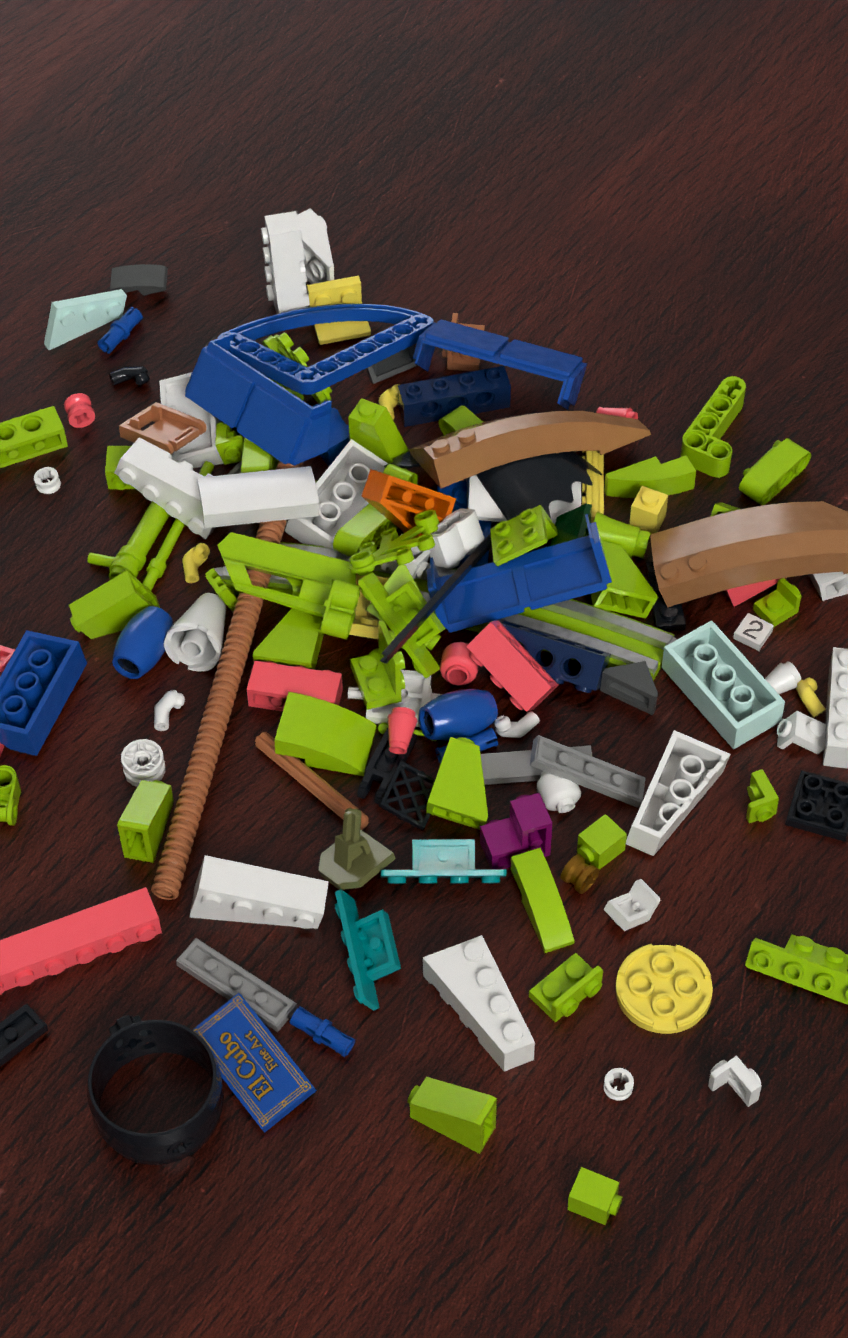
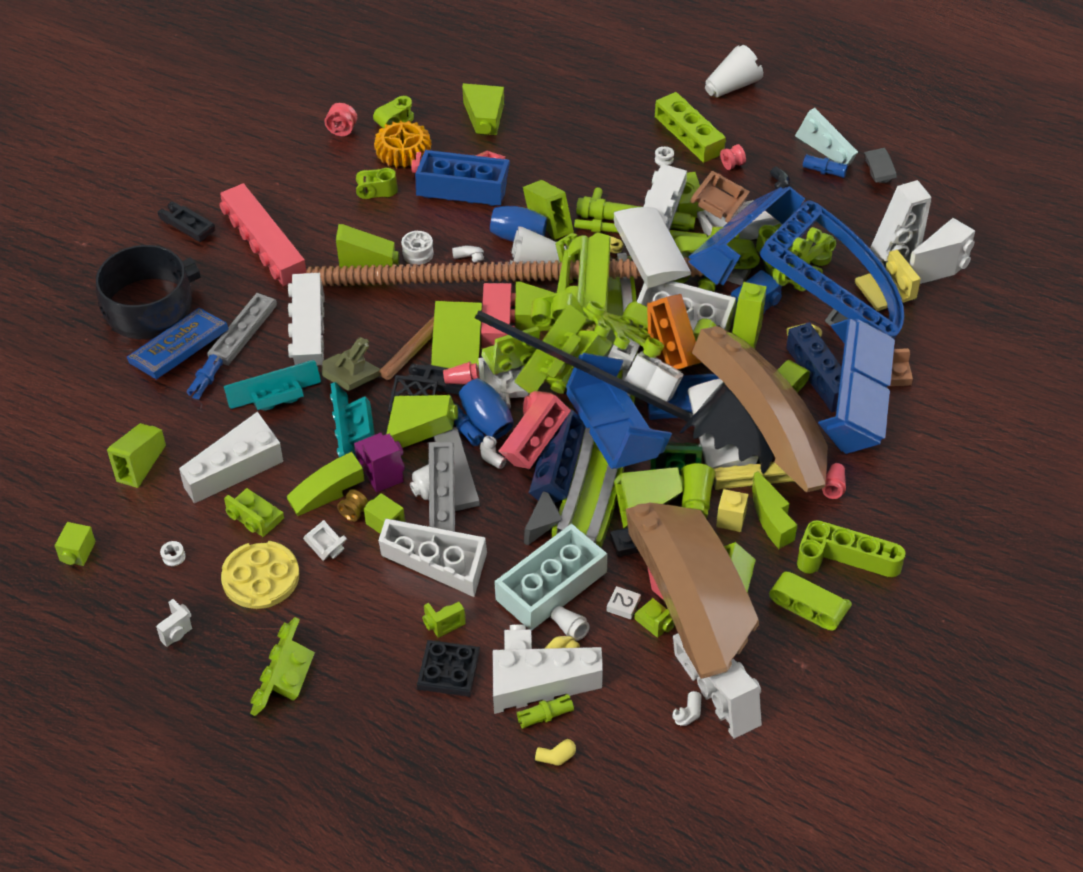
camera: 80 degrees right, 5 degrees down
(521, 534) = (669, 414): lime bracket -> none

